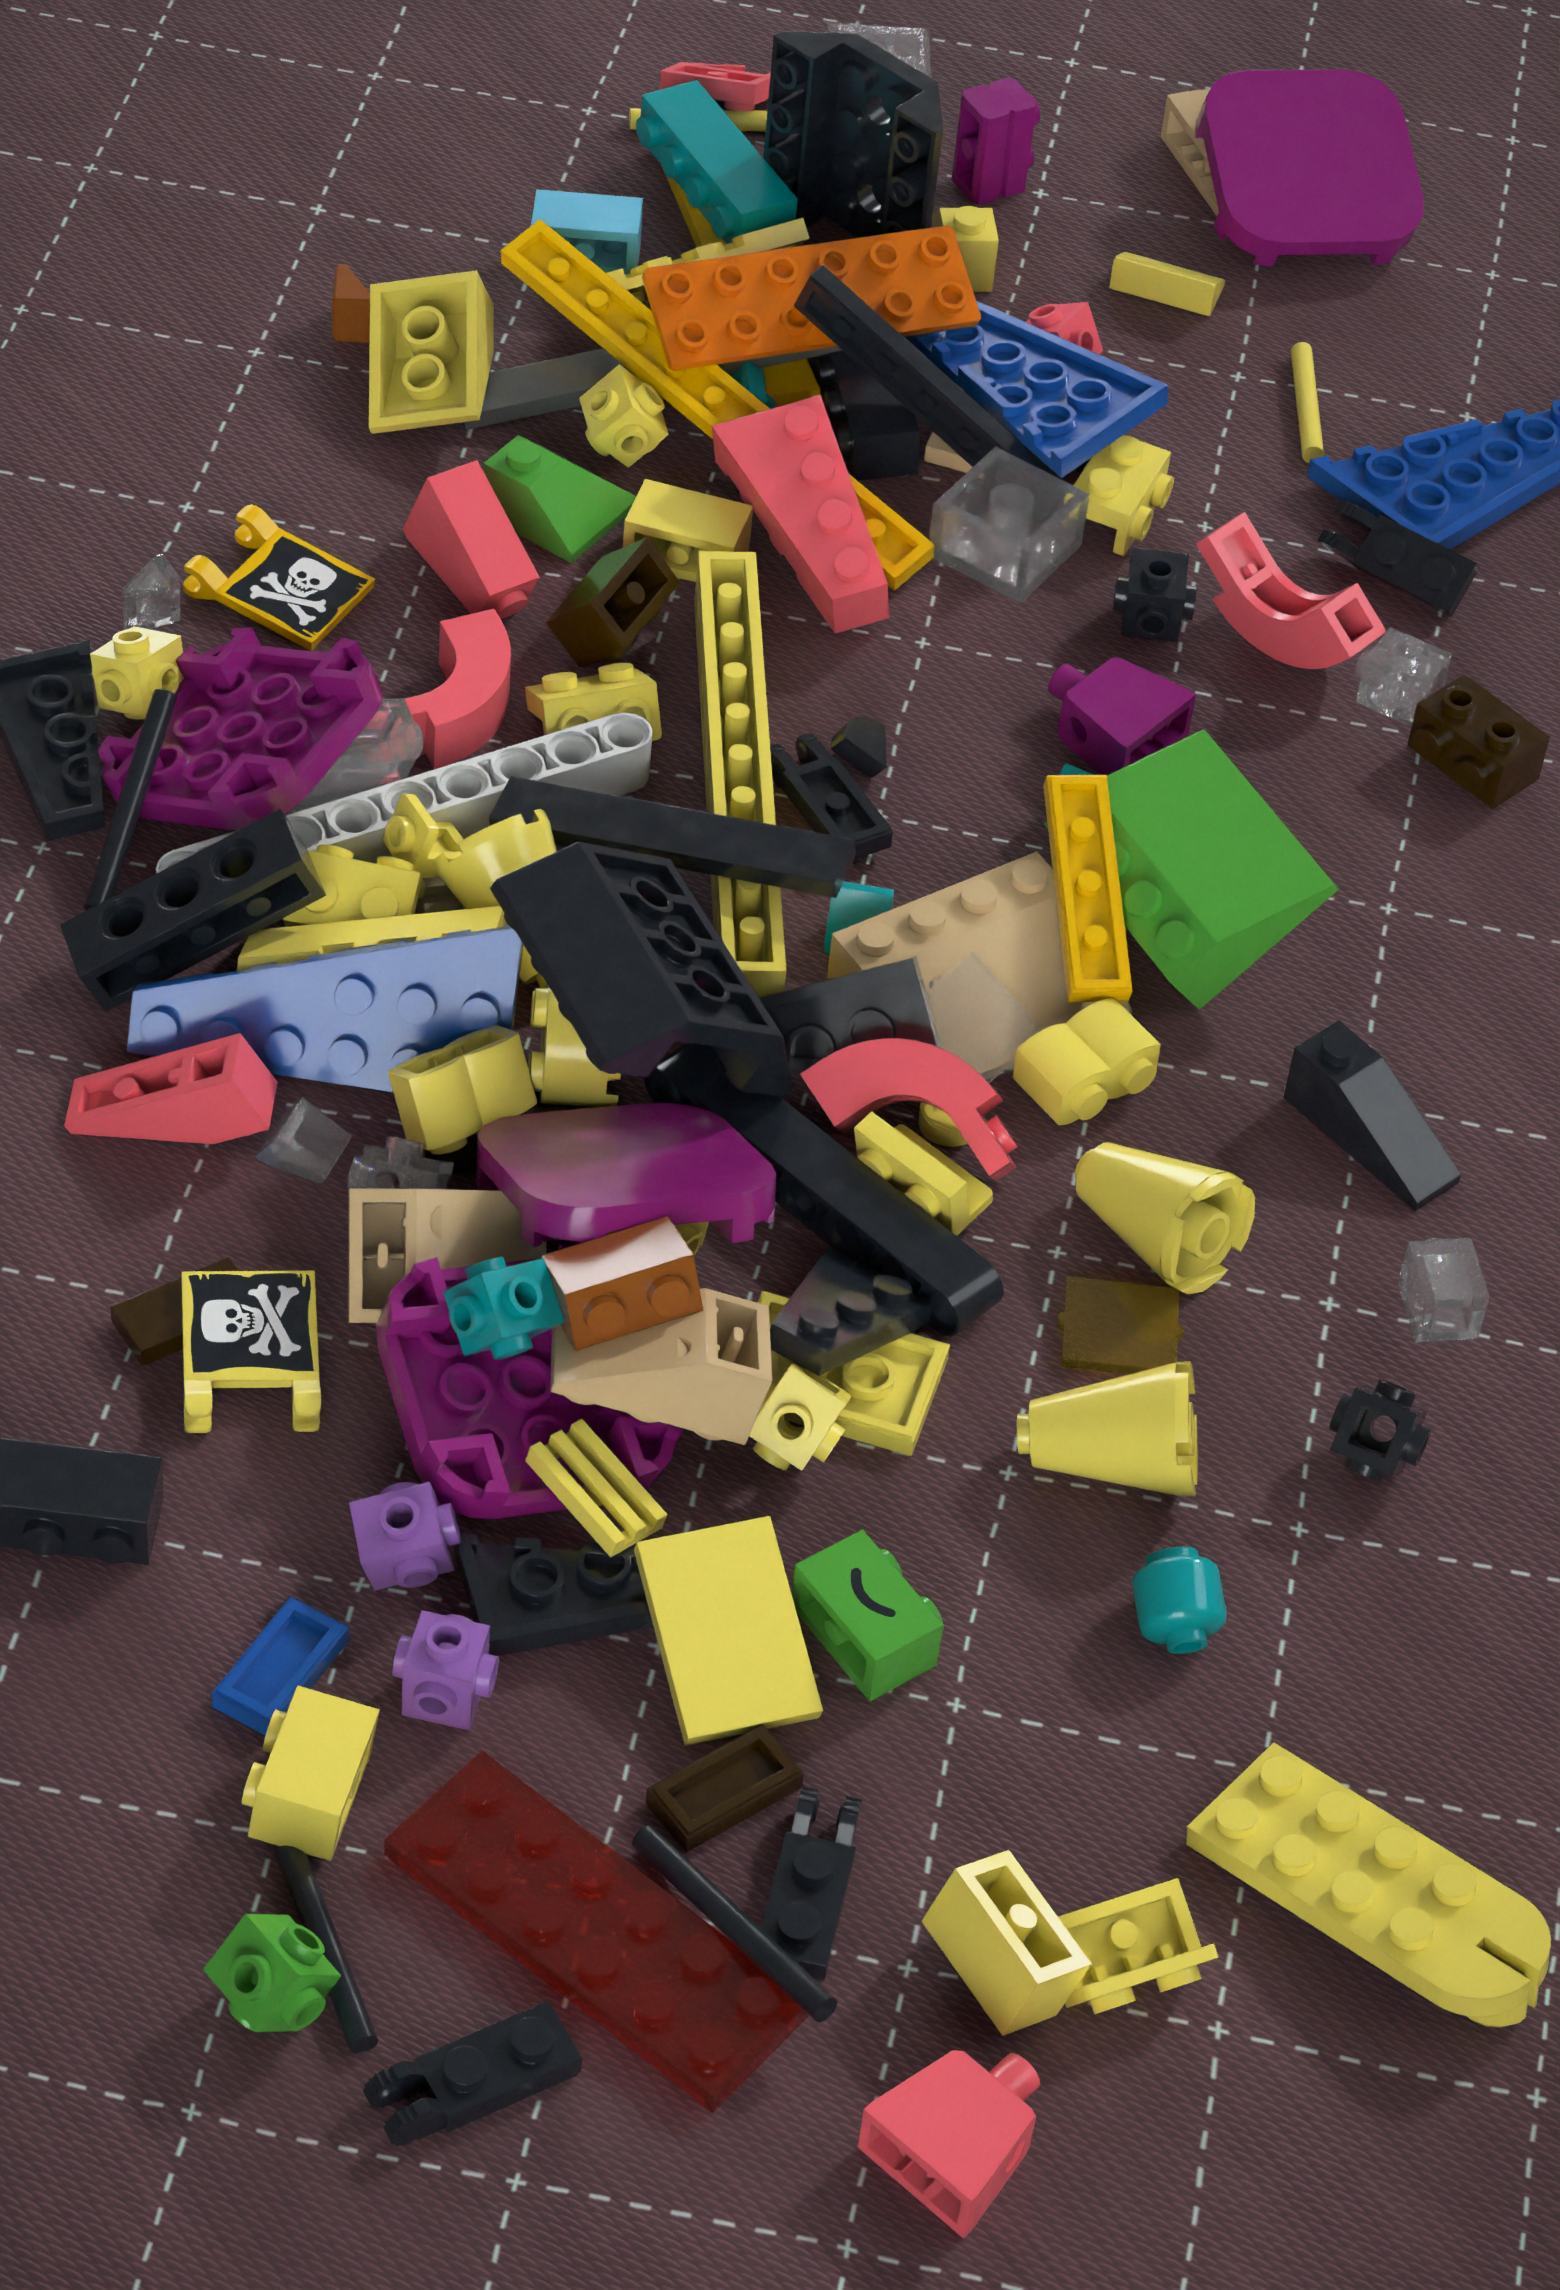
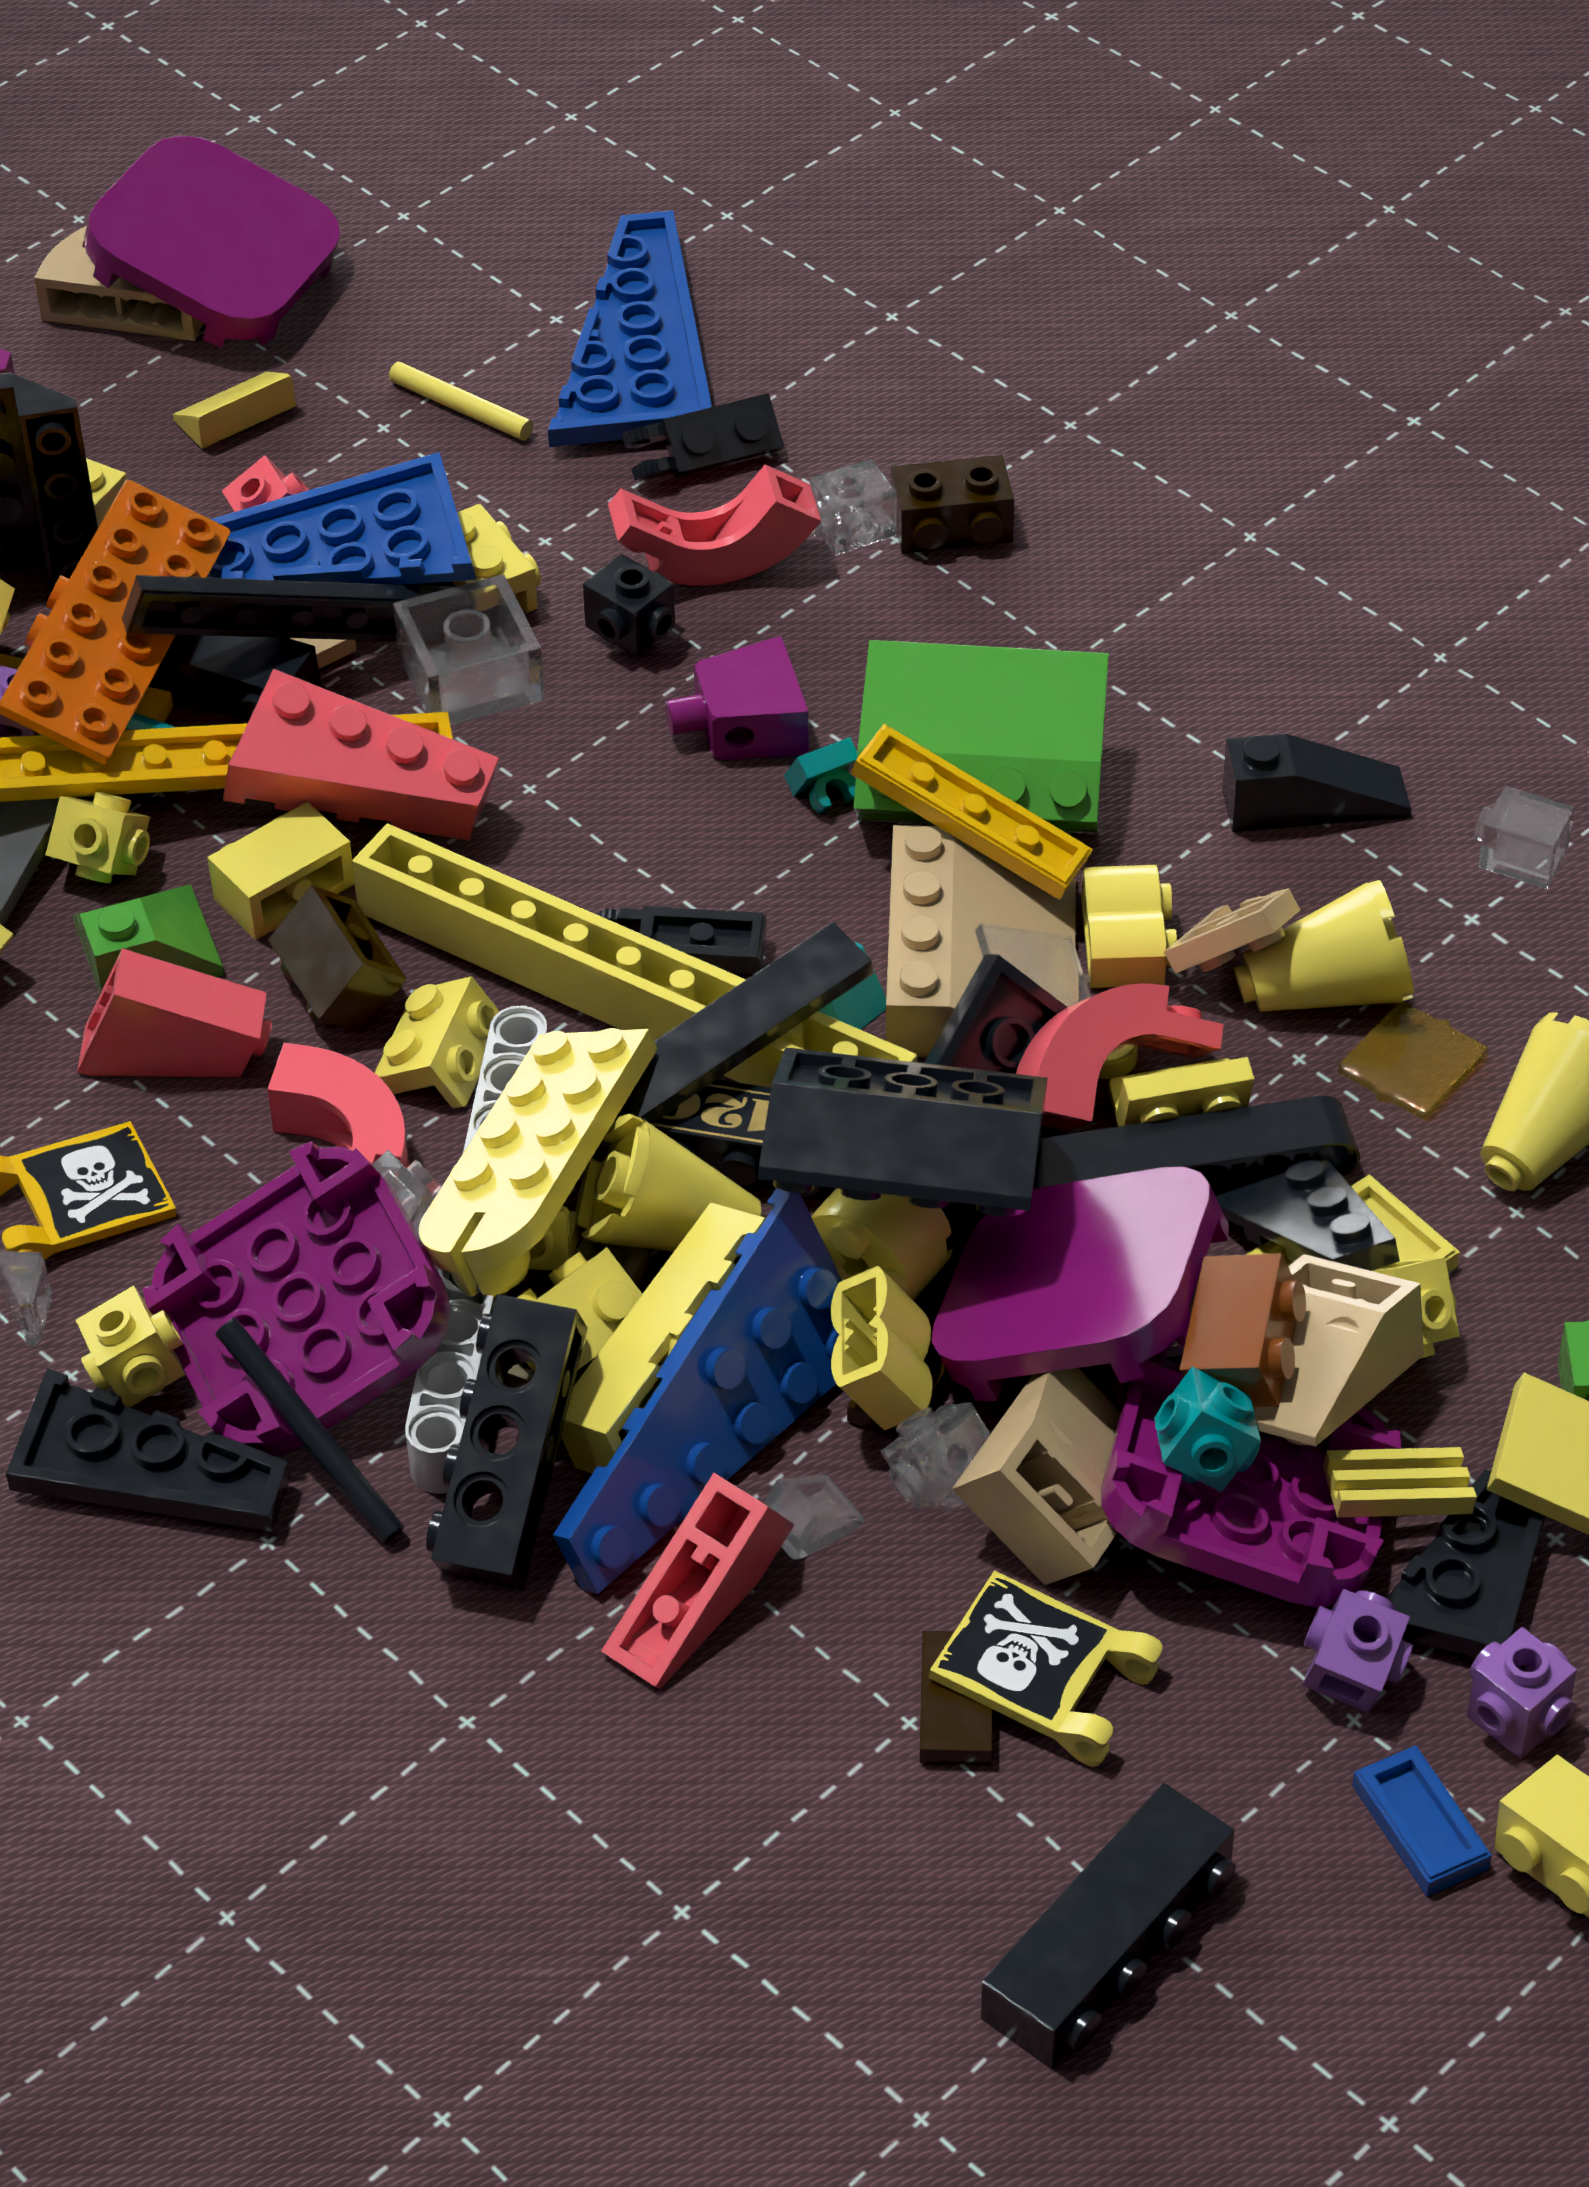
camera: 50 degrees left, 0 degrees up
(367, 786) = (531, 1154): none -> light yellow plate
(862, 745) = (639, 886): black tile -> none
(1112, 1121) = (1222, 931): none -> tan wing

